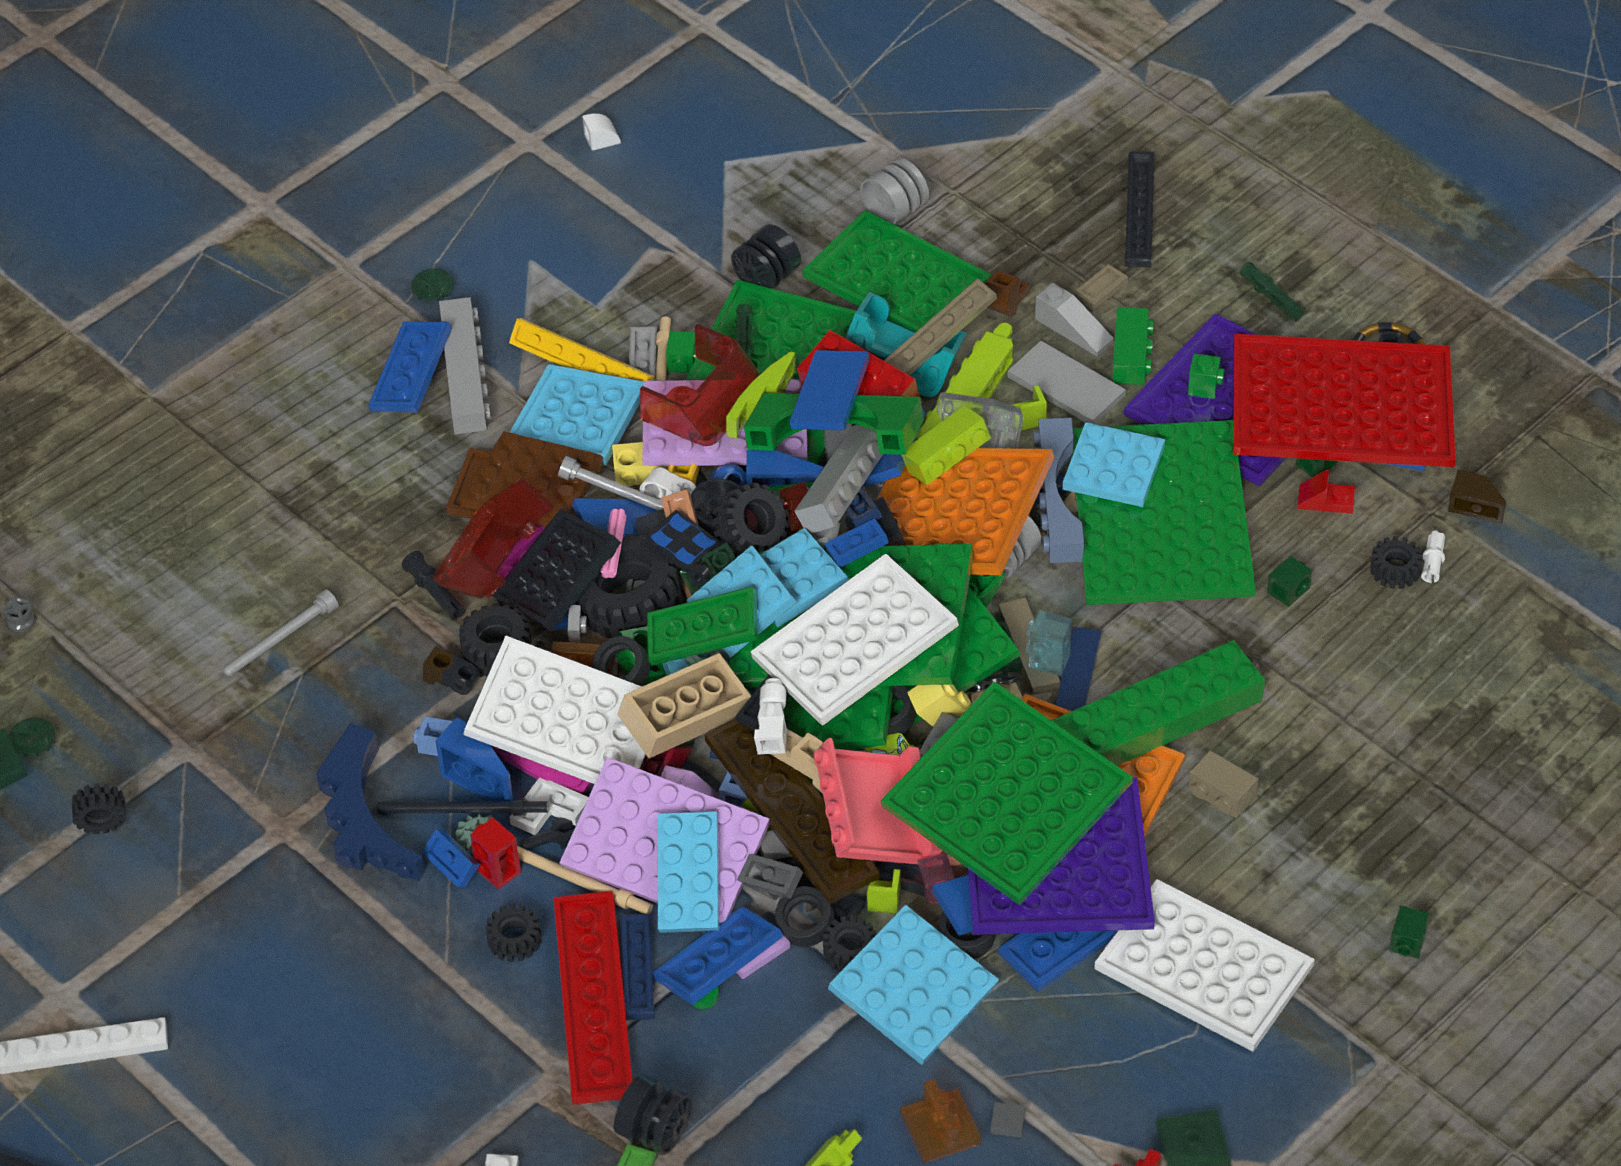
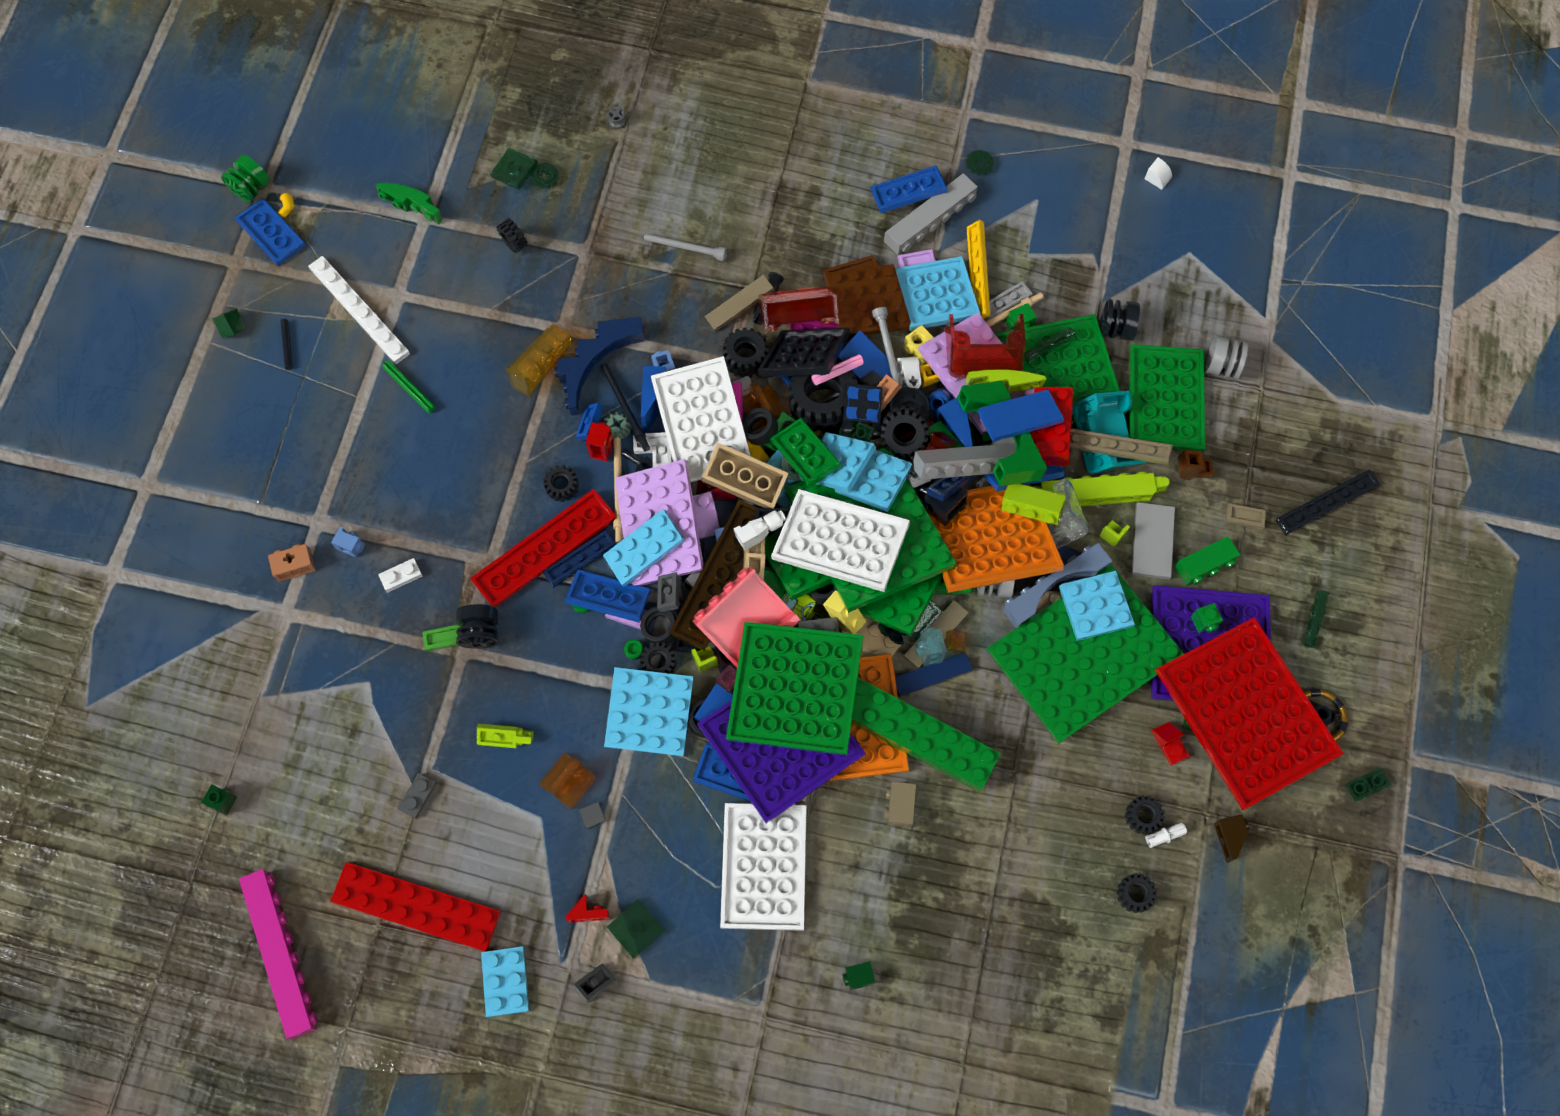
camera: 55 degrees right, 20 degrees up
(218, 1044) = (408, 386): none -> green axle
(313, 869) = (538, 359): none -> clear yellow wedge
(418, 613) = (738, 303): none -> dark tan tile
(450, 671) = (712, 342): leg -> none
(509, 412) = (916, 258): none -> lavender tile
(576, 624) = (780, 385): light grey plate -> none
(812, 967) = (633, 649): none -> green tile
(856, 543) = (915, 498): blue plate -> none
(1071, 319) = (1203, 515): light grey slope -> none
(1289, 581) = (1085, 758): dark green brick -> none
(1487, 606) = (1145, 884): none -> black tyre
(1497, 351) = (1367, 784): none -> clear green slope

